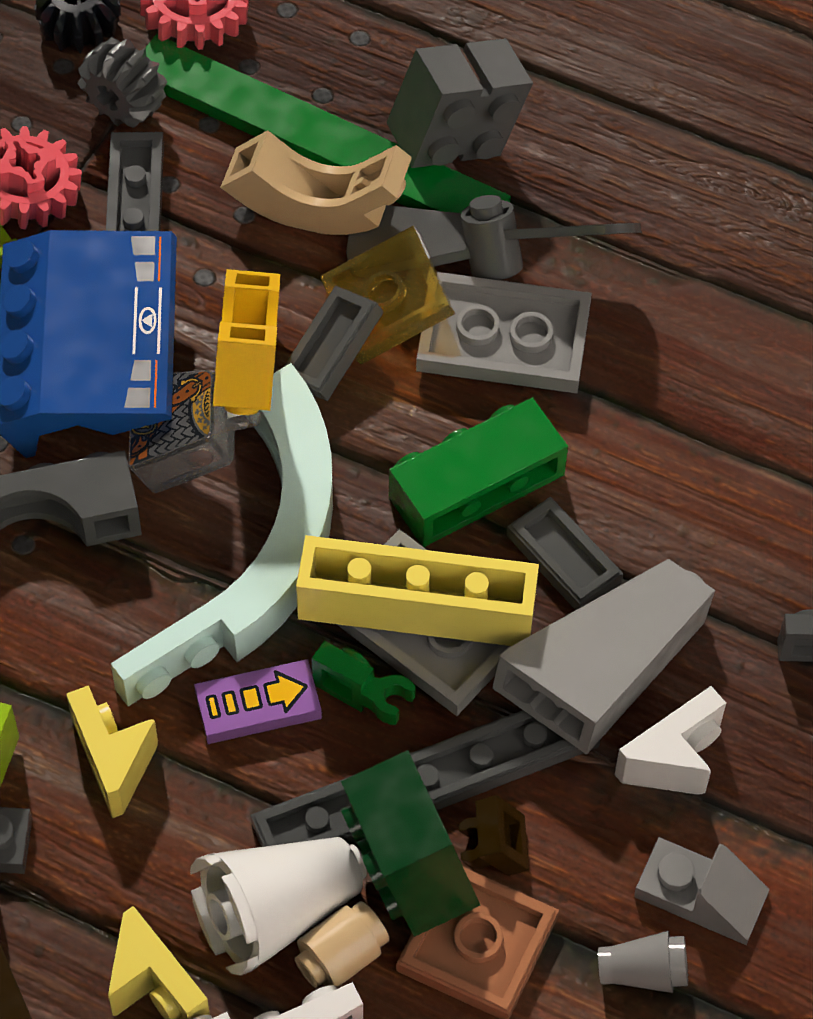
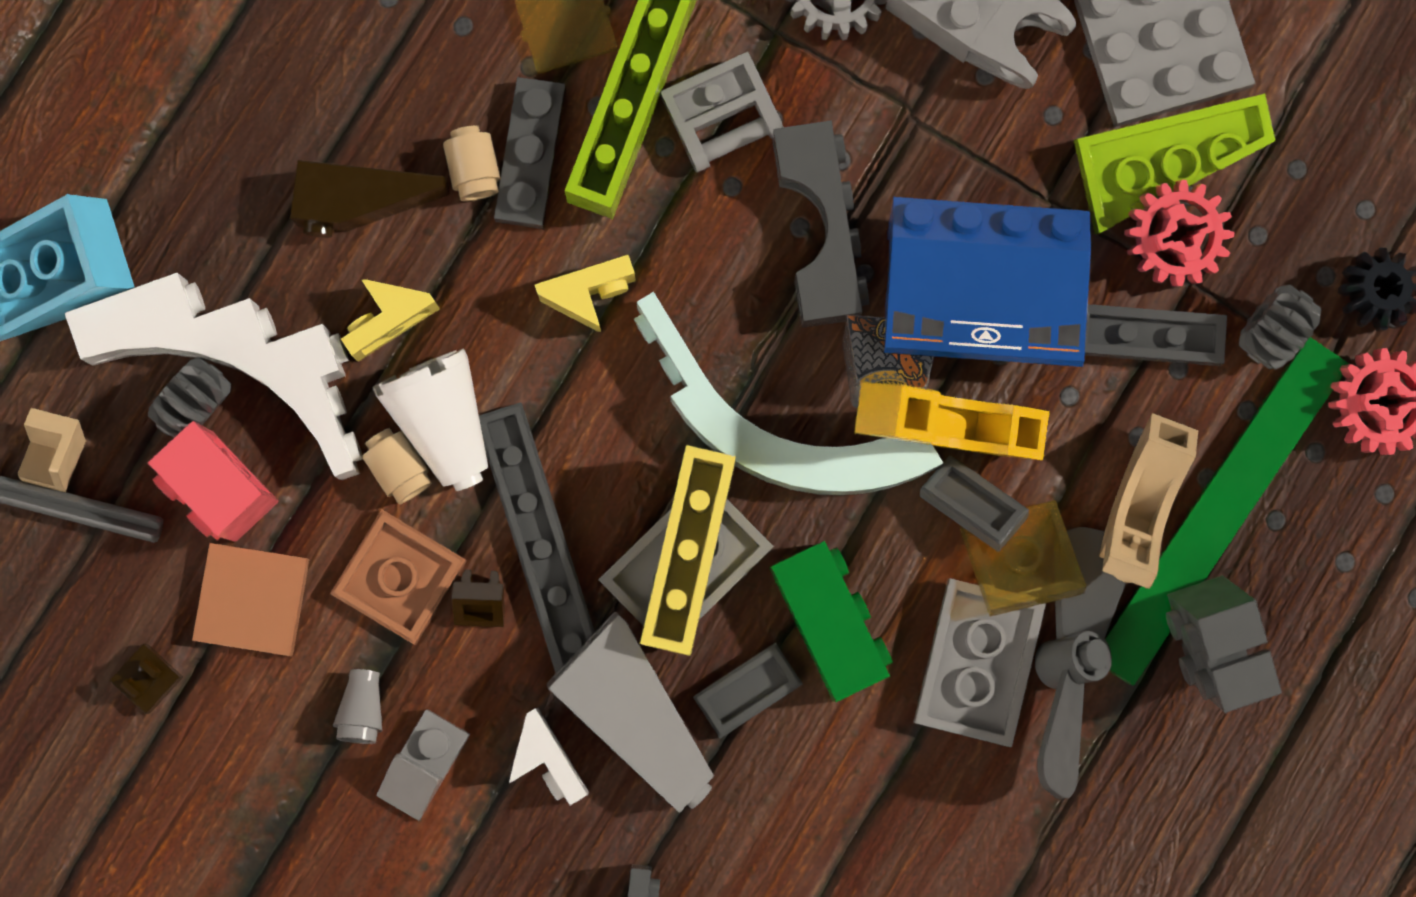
camera: 90 degrees right, 25 degrees up
(258, 701) = (627, 415): medium lavender tile -> none
(352, 680) = (637, 491): green plate -> none
(406, 845) = (459, 522): dark green brick -> none

